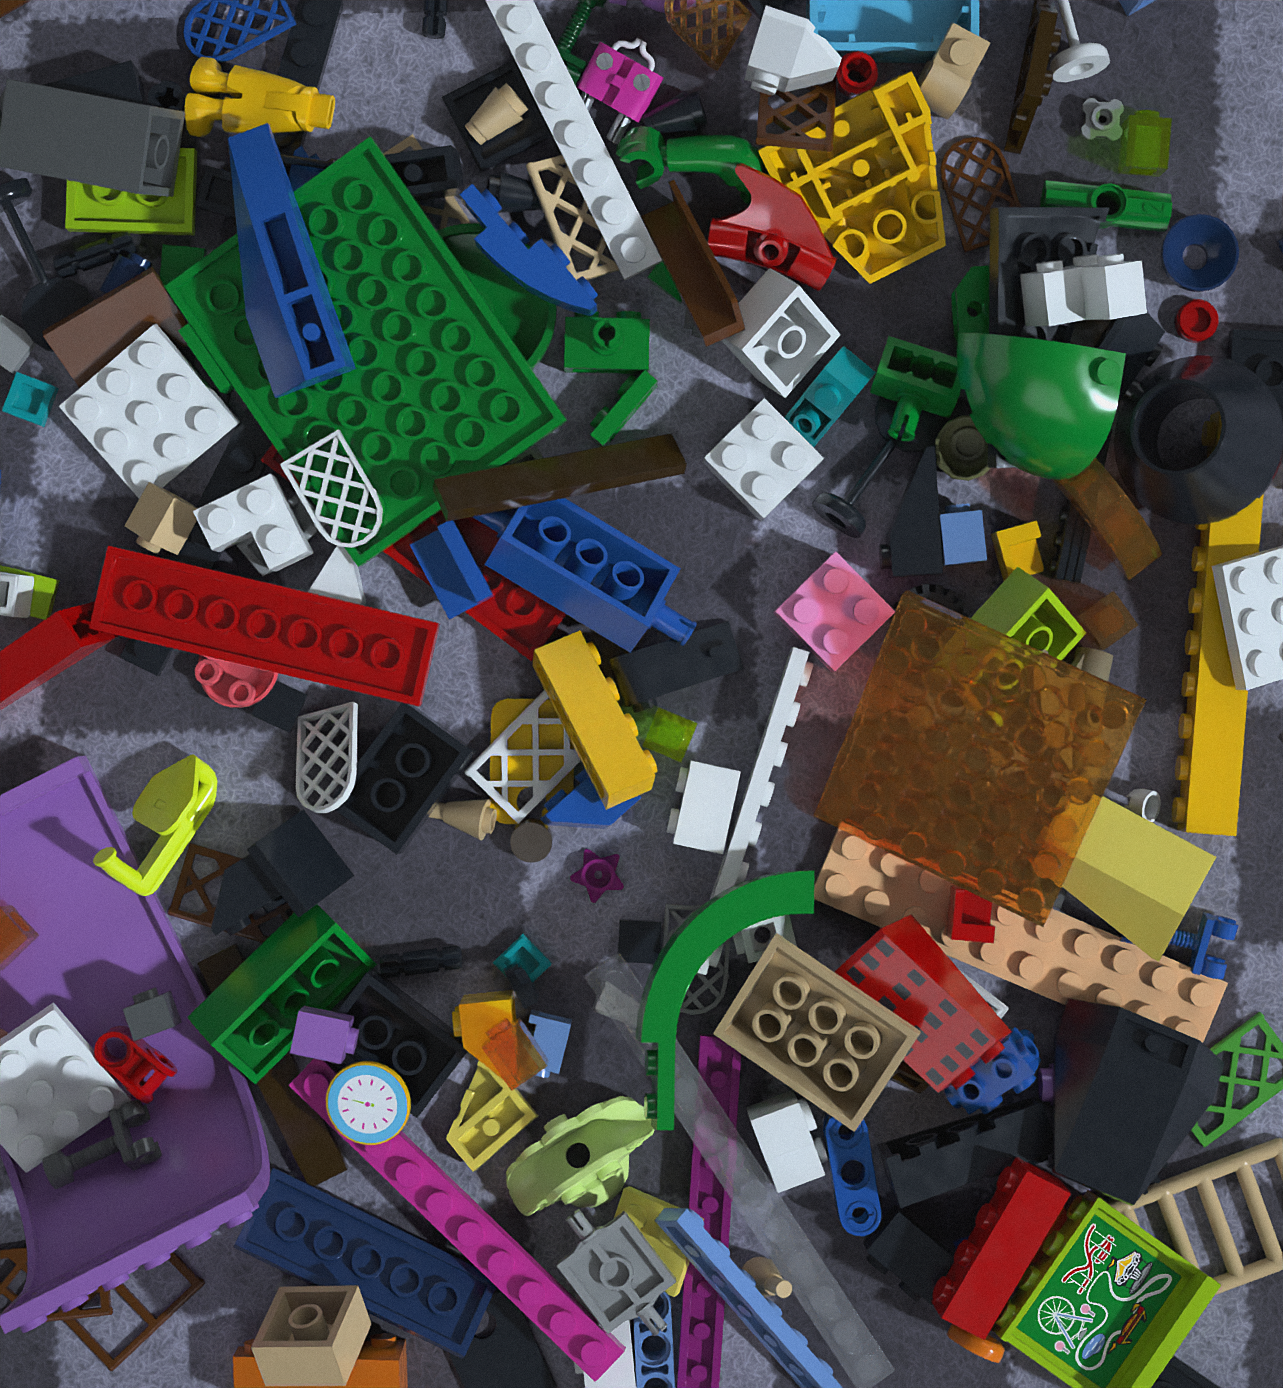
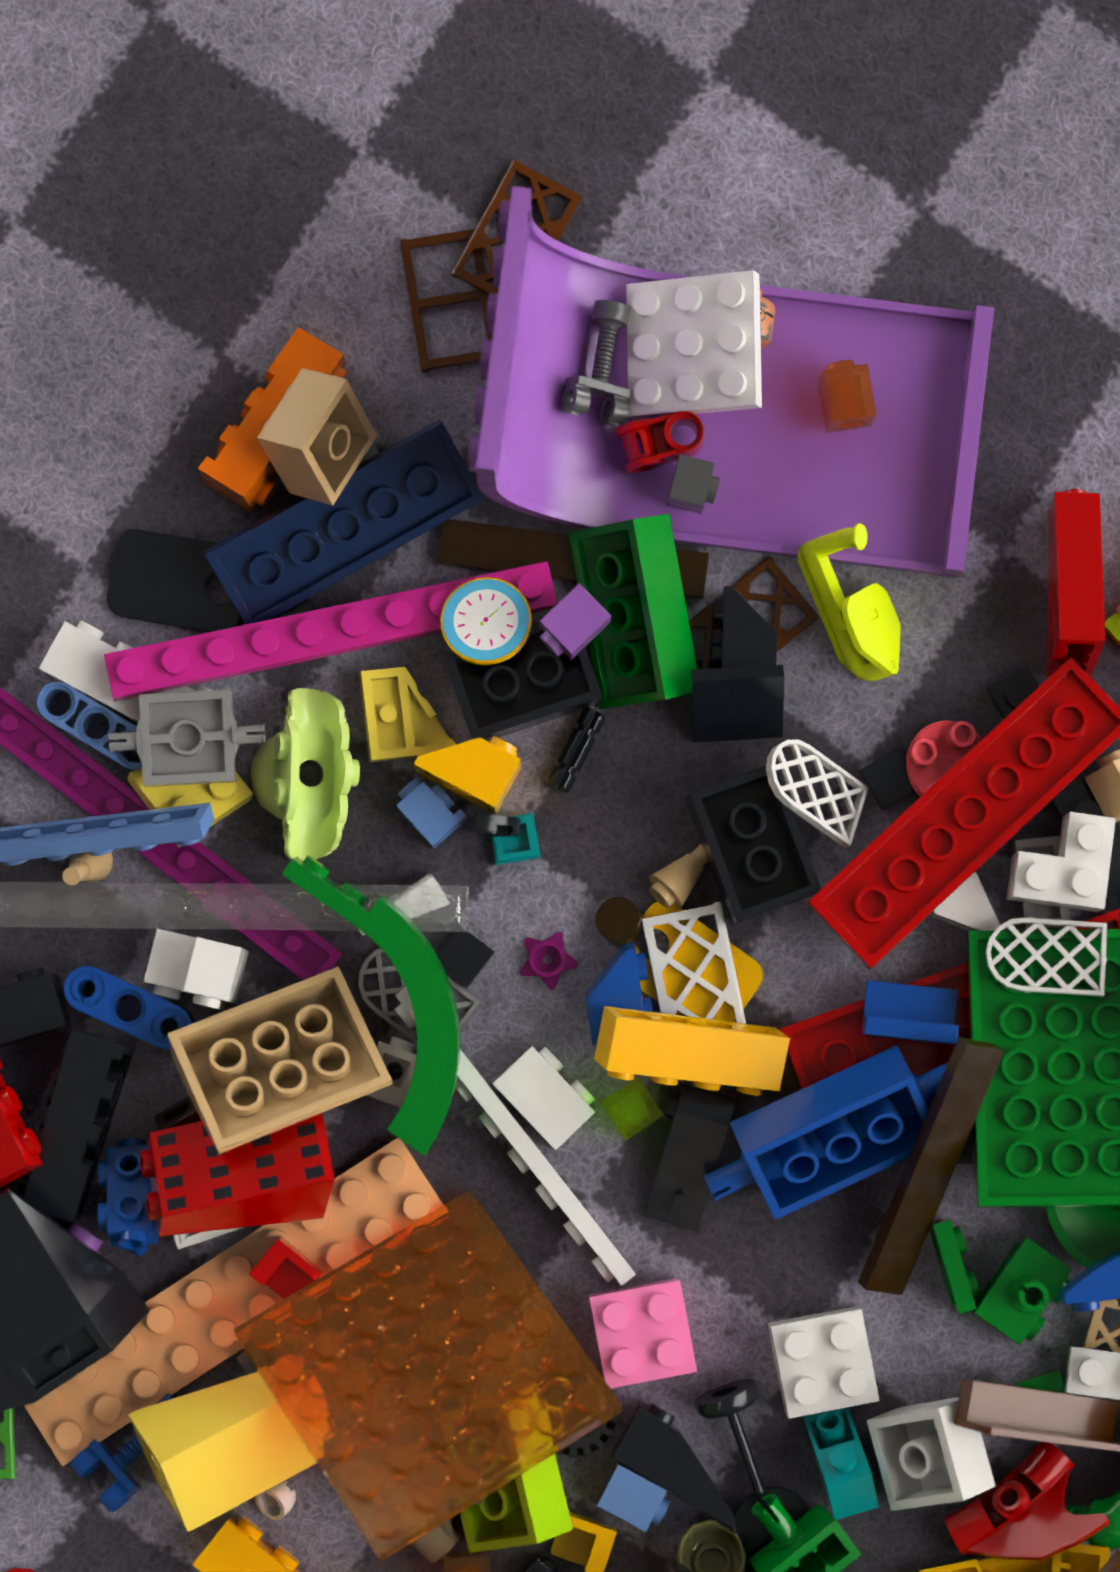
camera: 120 degrees right, 5 degrees down
(514, 1052) = (447, 779): clear orange brick -> none

